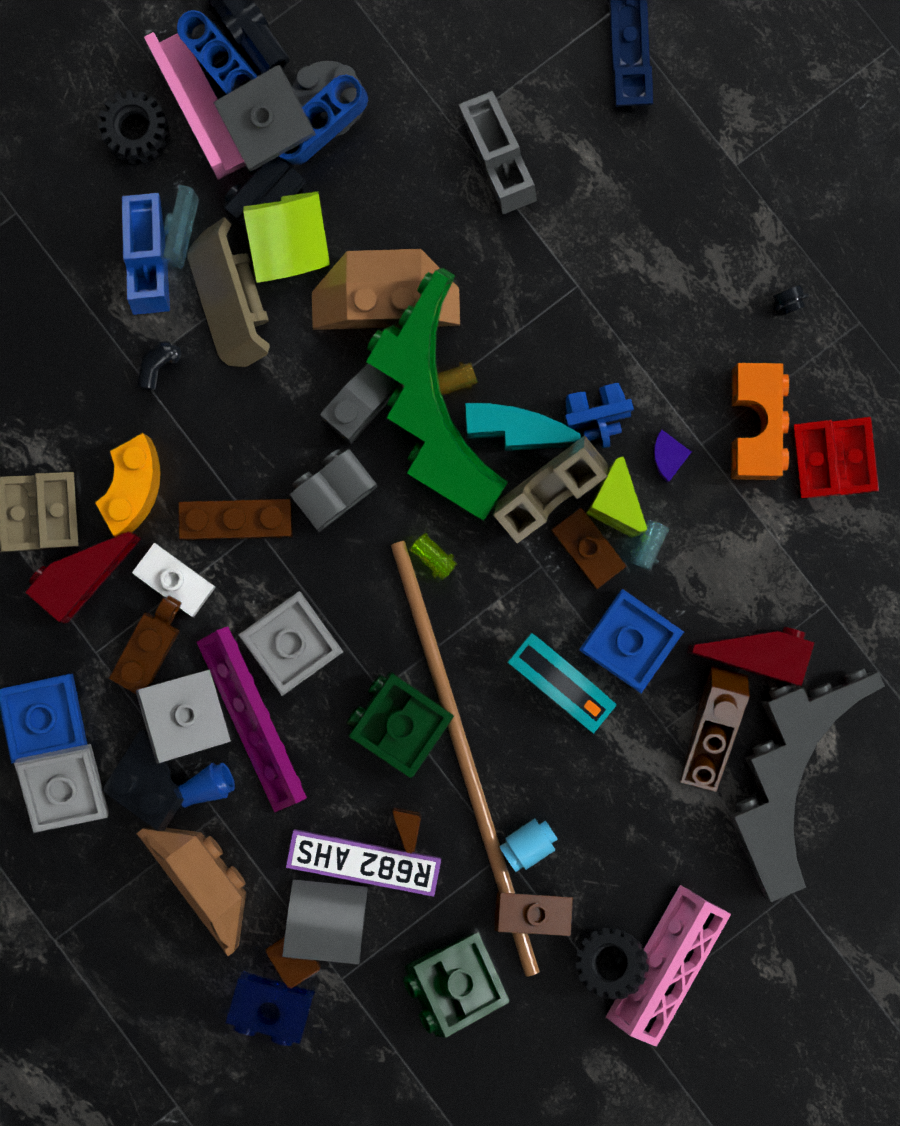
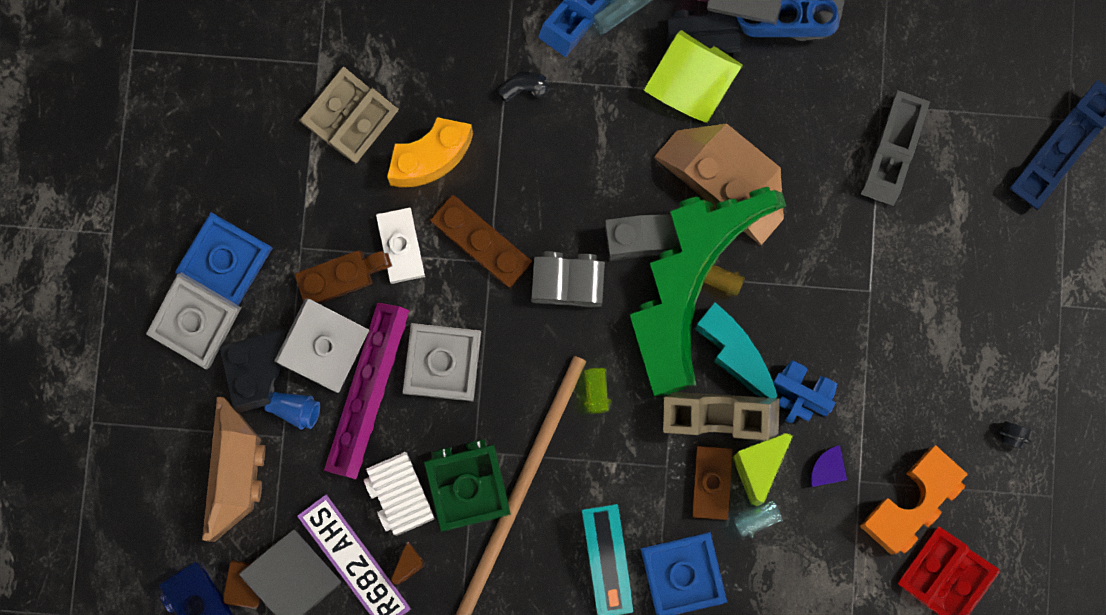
camera: 40 degrees right, 5 degrees down
(74, 579) = (331, 183): dark red slope -> none
(228, 296) = (615, 83): dark tan piece -> none
(351, 778) = (399, 494): none -> white brick

